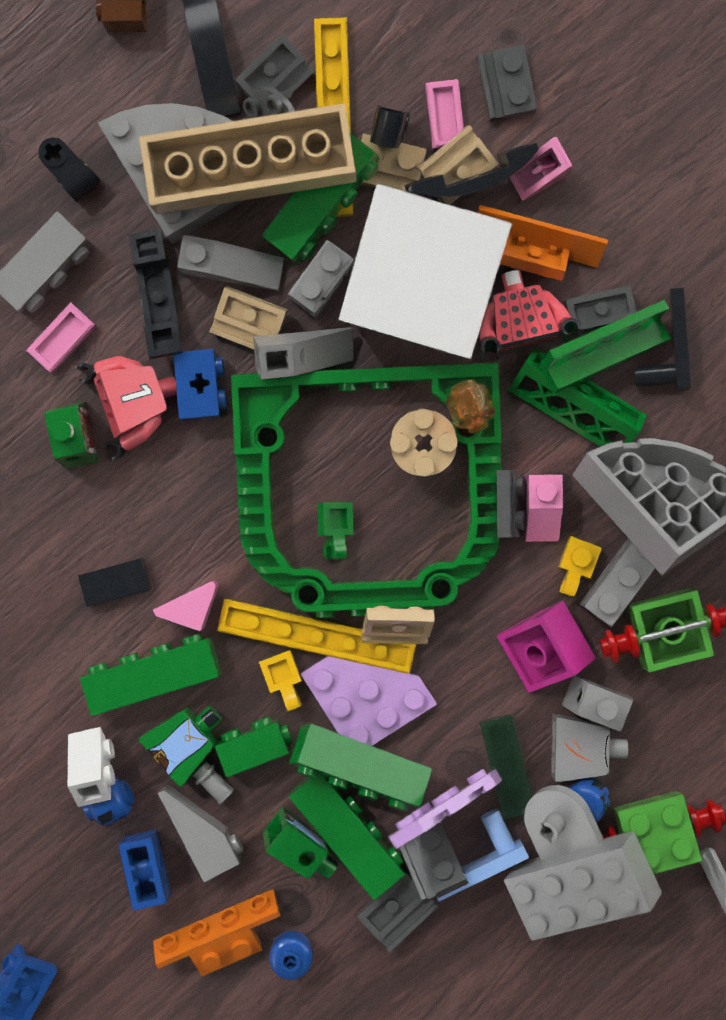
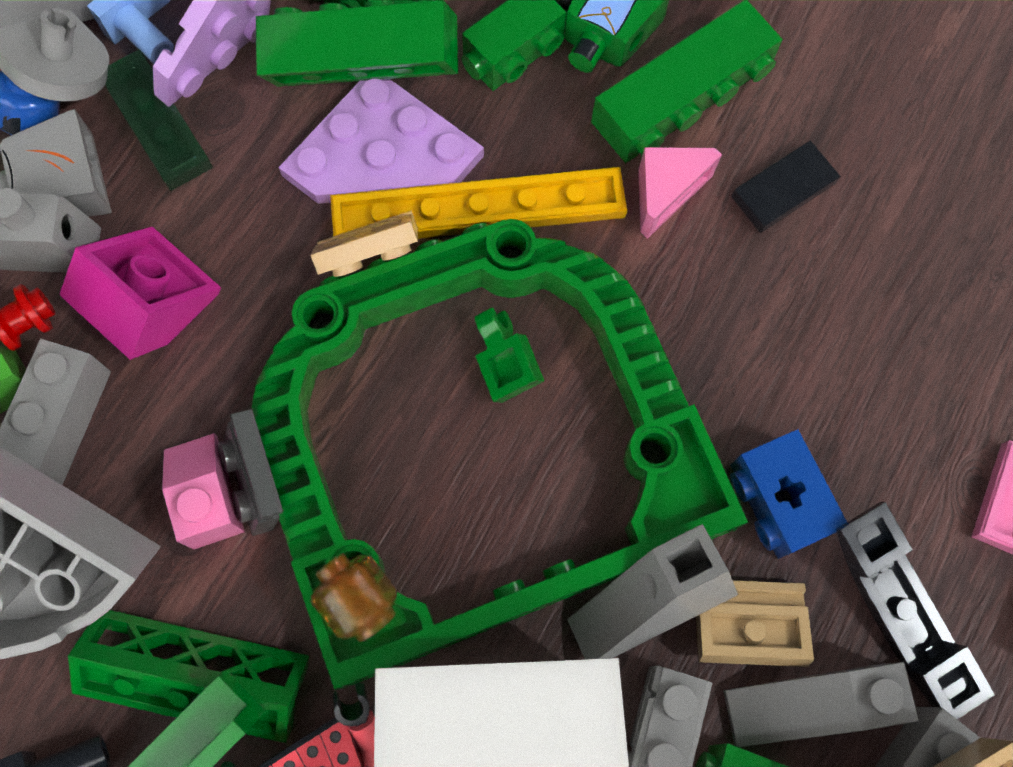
camera: 160 degrees right, 15 degrees down
(71, 435) = (943, 357): green torso -> none
(130, 399) = (881, 436): coral torso -> none
(280, 675) = (505, 137): yellow plate -> none
(404, 443) = (422, 546): tan plate -> none
(579, 560) = (126, 431): yellow plate -> none

